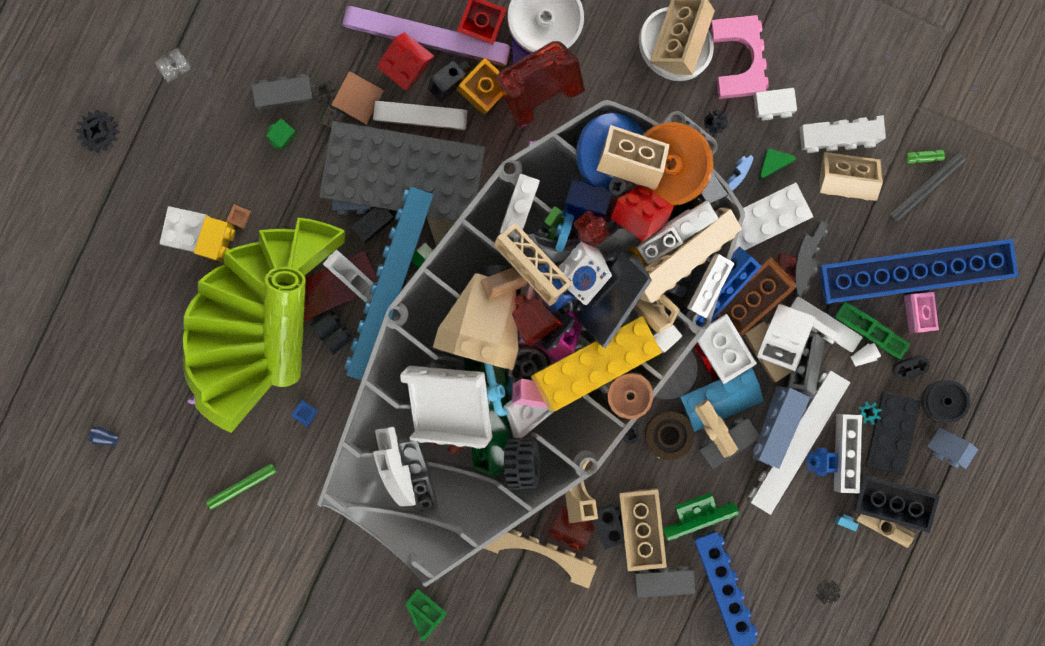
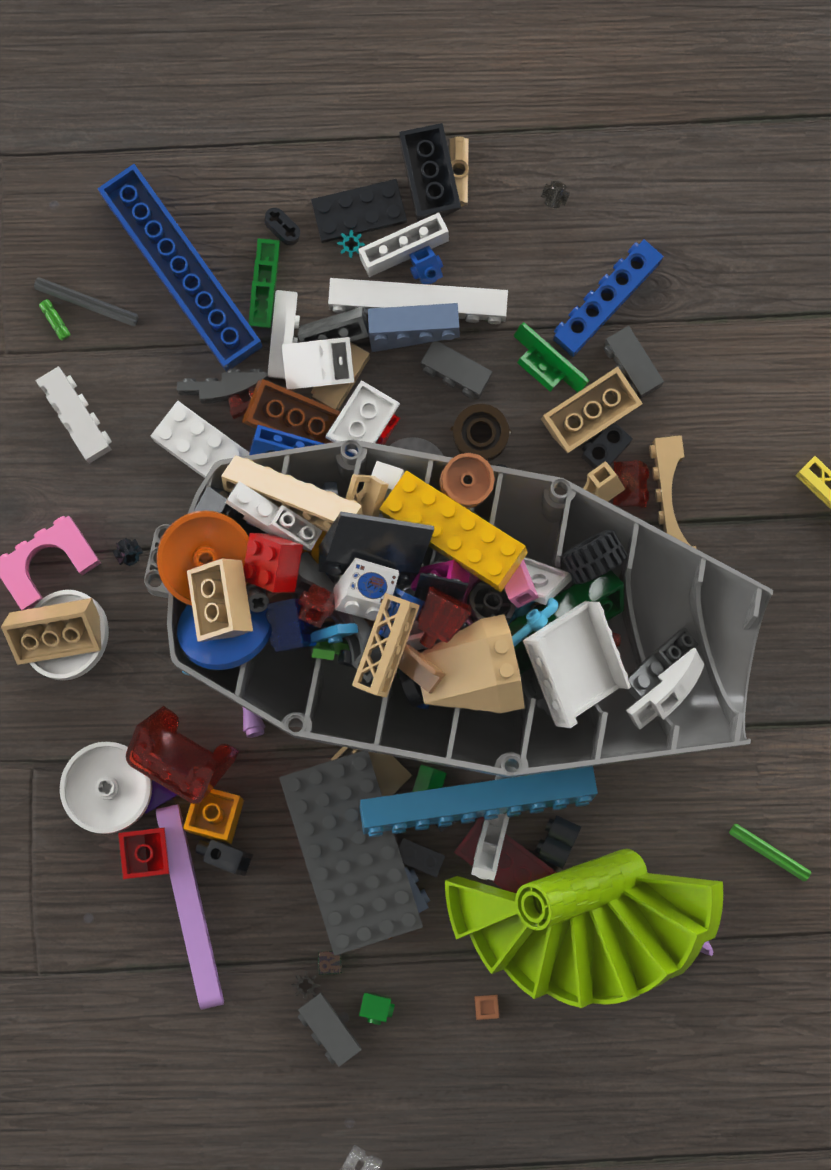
camera: 110 degrees left, 5 degrees down
(100, 436) = (797, 1028): dark blue cone -> none
(181, 229) = (532, 1057): white brick -> none
(214, 239) = (526, 1017): yellow brick -> none
(304, 413) = (658, 825): blue plate -> none
(357, 97) = (294, 945): nougat slope -> none
(405, 61) = (229, 913): red brick -> none
(420, 115) = (279, 868): white beam -> none
(425, 613) = (797, 590): green wing -> none
(520, 203) = (328, 694): white plate -> none
(710, 285) = (310, 457): white plate -> none
(715, 428) = (449, 388): tan piece -> none
(725, 398) = (419, 402): dark azure slope -> none
(742, 169) = (163, 499): light blue slope -> none
(773, 162) = (140, 471): green slope -> none
(775, 103) = (76, 500): white brick -> none
(846, 521) = (474, 211): medium azure plate -> none
(850, 176) = (114, 384): tan slope -> none
(866, 355) = (293, 277): white cone -> none
(921, 312) = (220, 243): bright pink slope -> none
(953, 448) = (344, 143): sand blue brick -> none
(956, 401) = (288, 168): black wheel -> none

